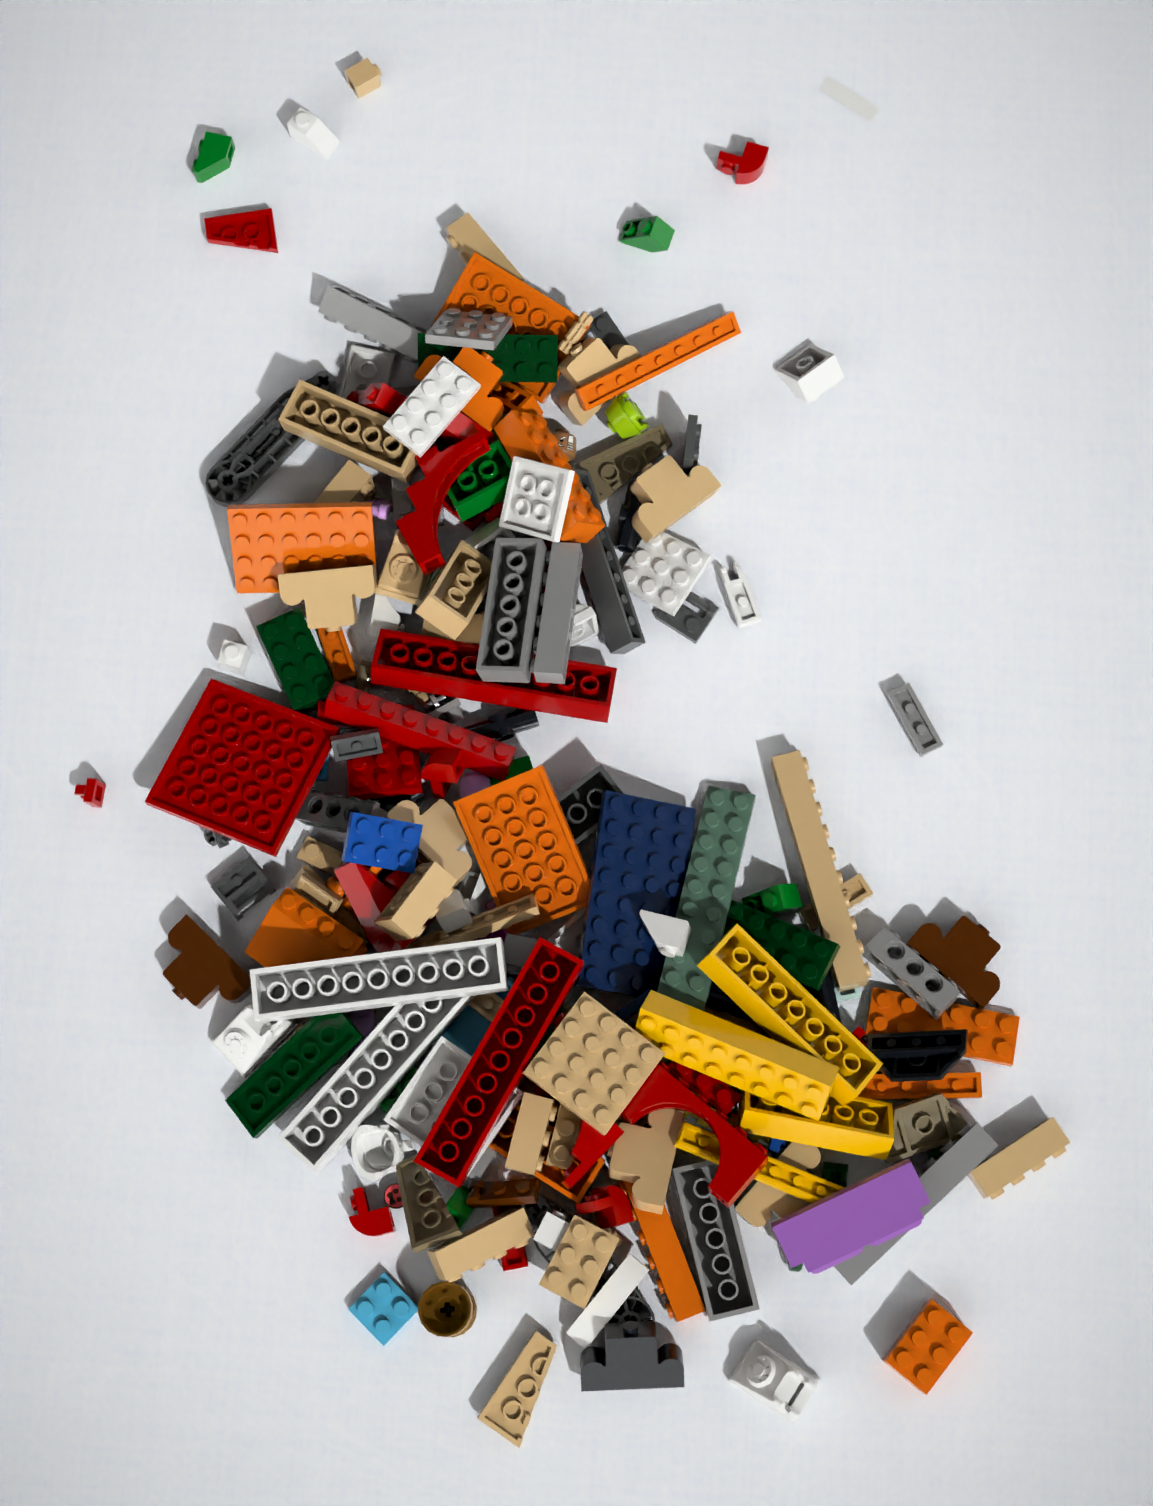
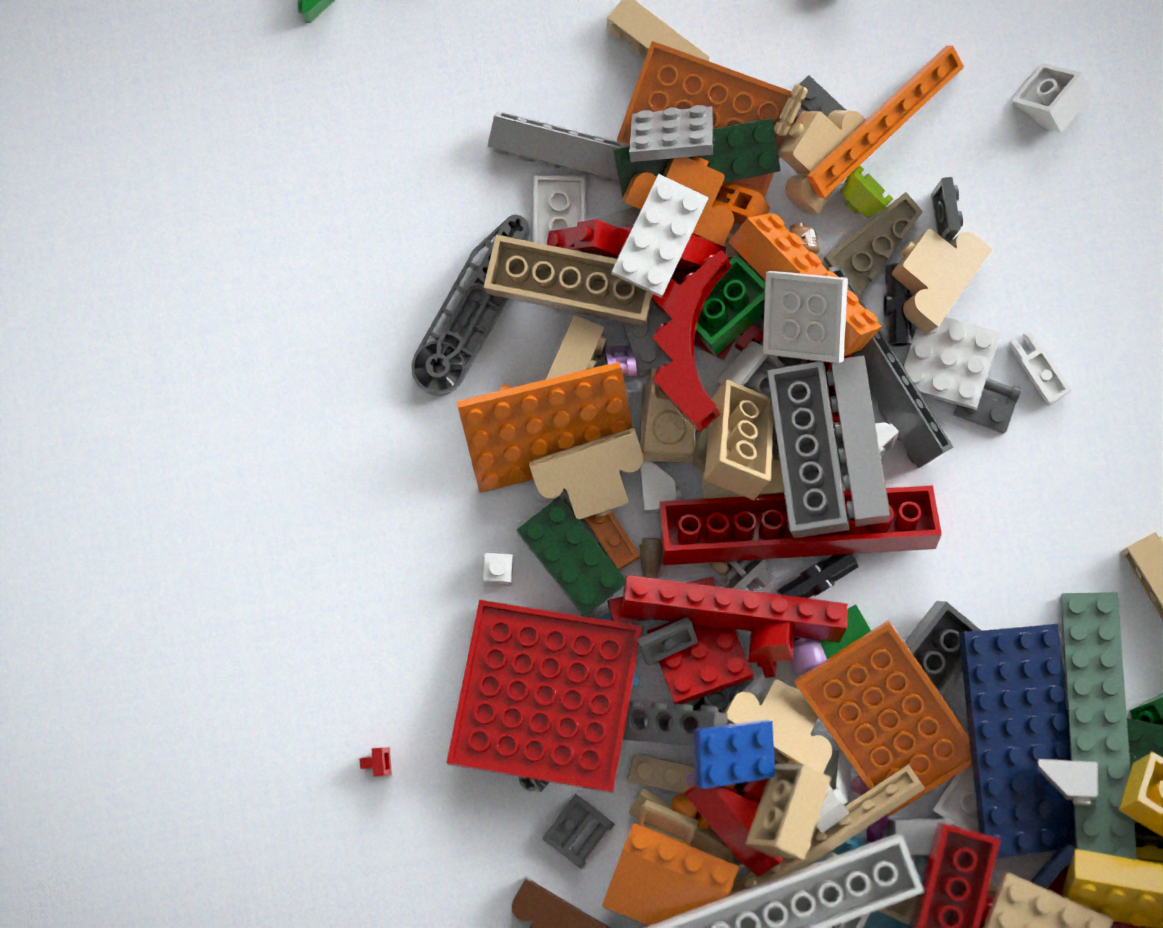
camera: 20 degrees left, 5 degrees up
(244, 230) = (375, 68): red wing -> none

